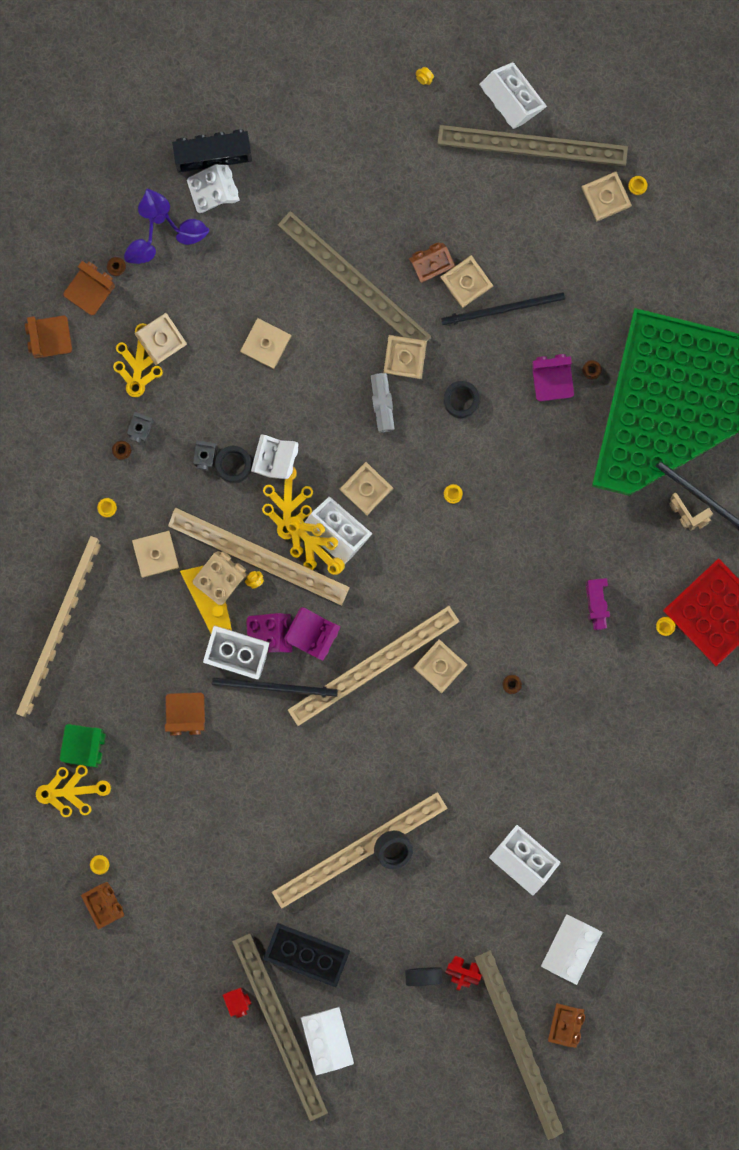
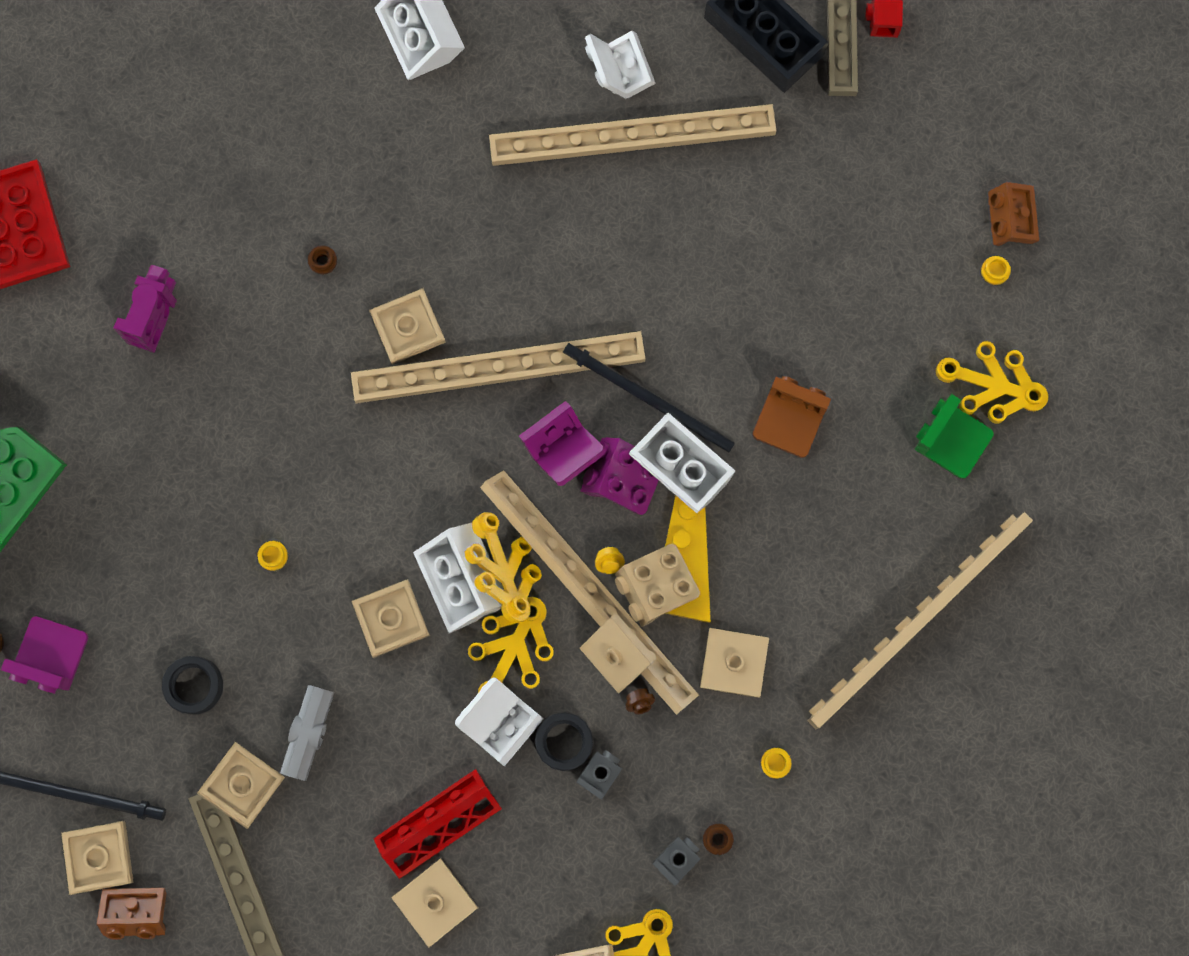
camera: 160 degrees left, 5 degrees down
(200, 506) = (639, 701): none -> reddish brown plate
(224, 526) = (617, 653): none -> tan plate
(287, 387) = (433, 819): none -> red fence
(387, 890) = (620, 64): none -> white bracket
(398, 860) = (587, 122): black tyre -> none
(665, 626) = (76, 243): yellow plate -> none

